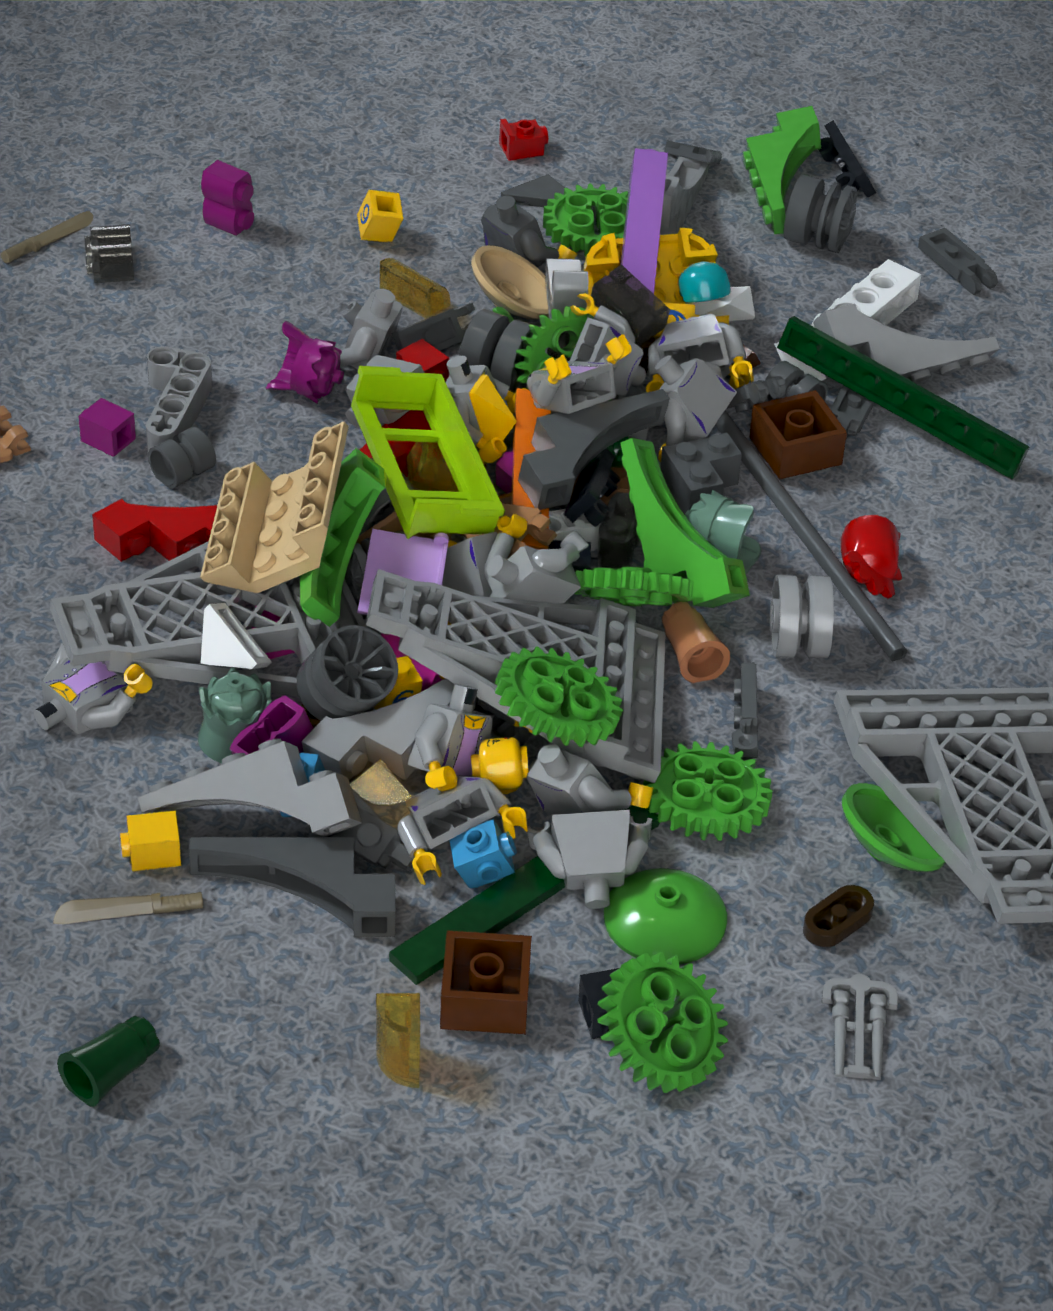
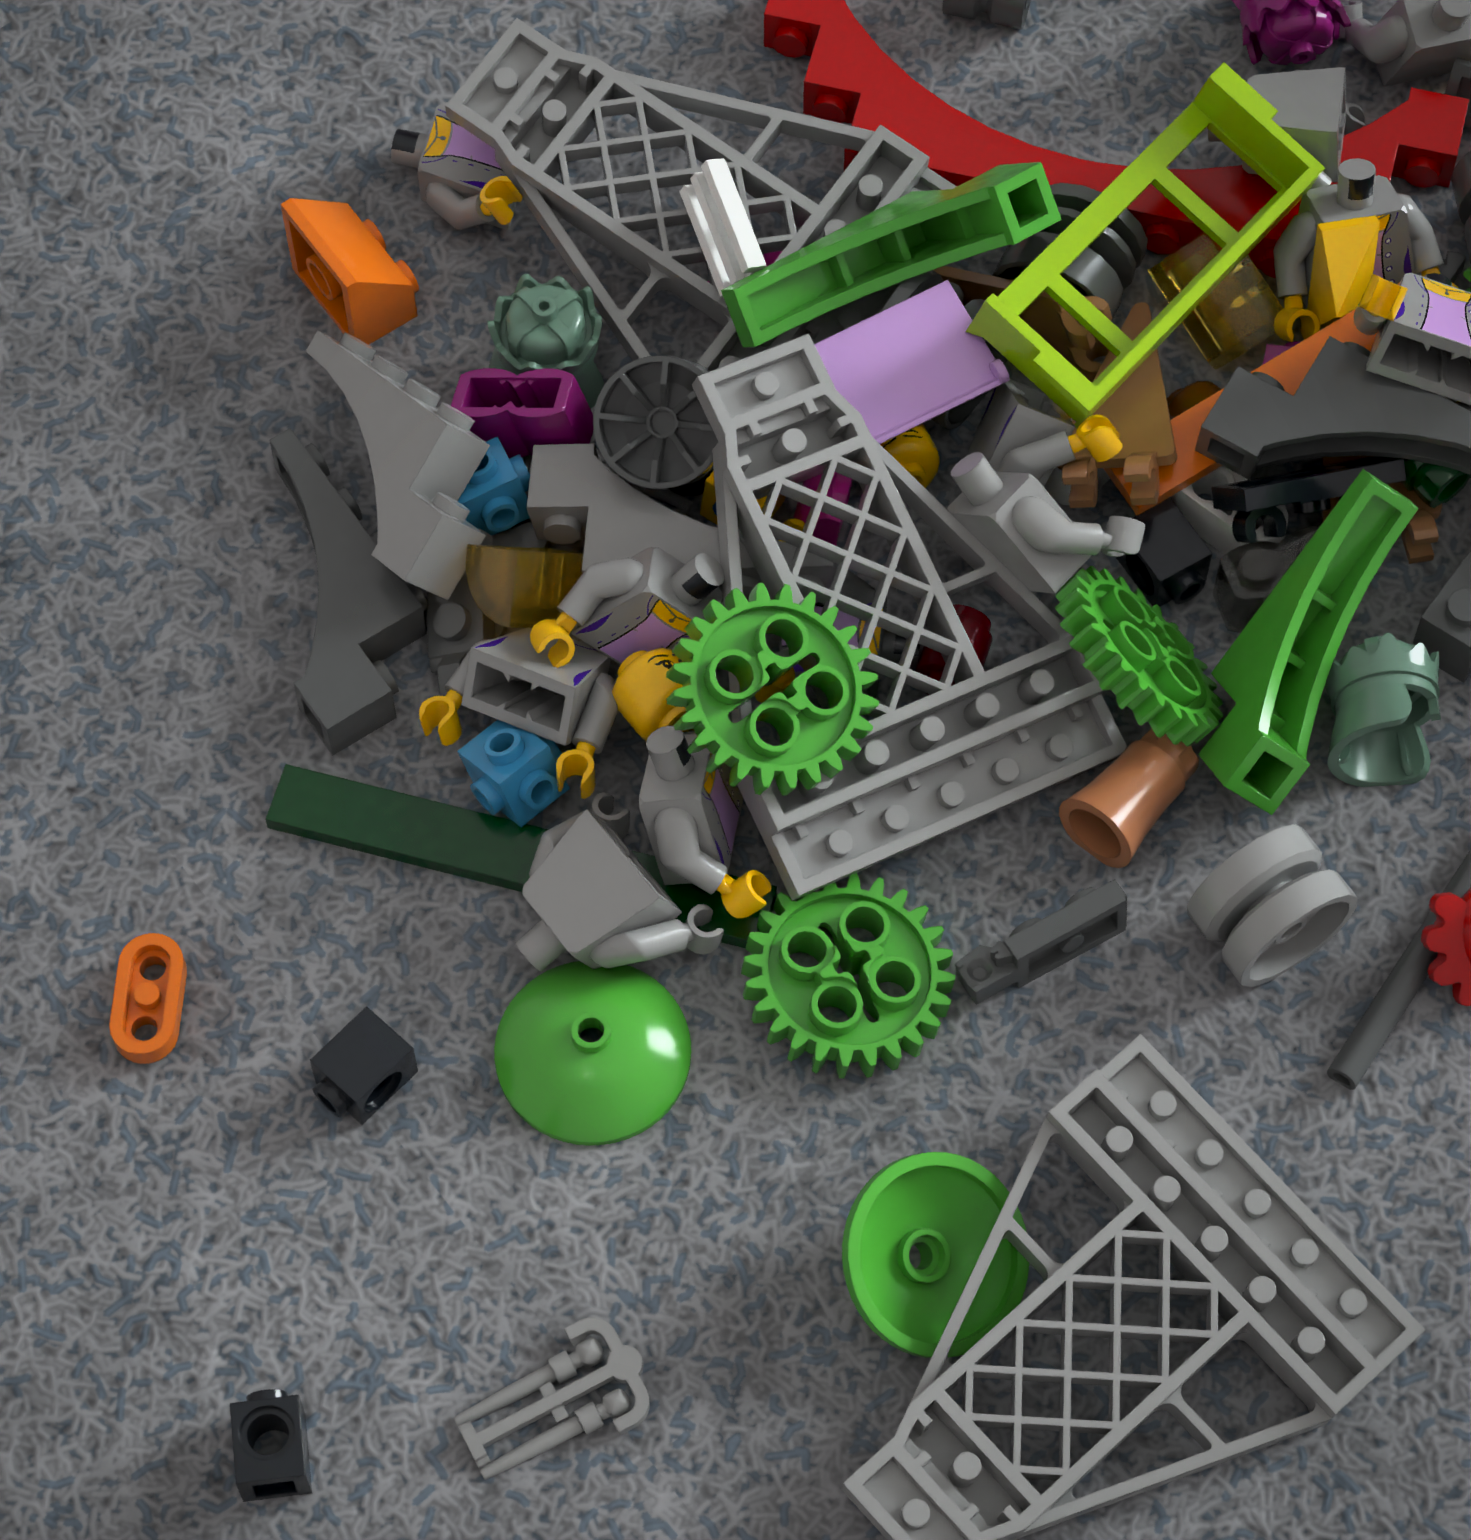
camera: 60 degrees right, 20 degrees up
(106, 775) = (348, 268): none -> orange slope
(115, 907) = (163, 433): dark tan piece -> none
(152, 841) = (278, 391): yellow brick -> none
(228, 642) = (626, 254): white slope -> none
(255, 607) = (721, 224): none -> white tile
(274, 527) = (863, 155): tan slope -> none
(398, 1037) = (116, 860): clear yellow brick -> none
(485, 982) = (288, 903): reddish brown brick -> none
(489, 1079) = (148, 1001): none -> orange plate
(692, 1037) = (367, 1207): bright green gear -> none
(804, 1150) = (278, 1473): none -> black brick
(834, 916) = (738, 1264): dark brown plate -> none

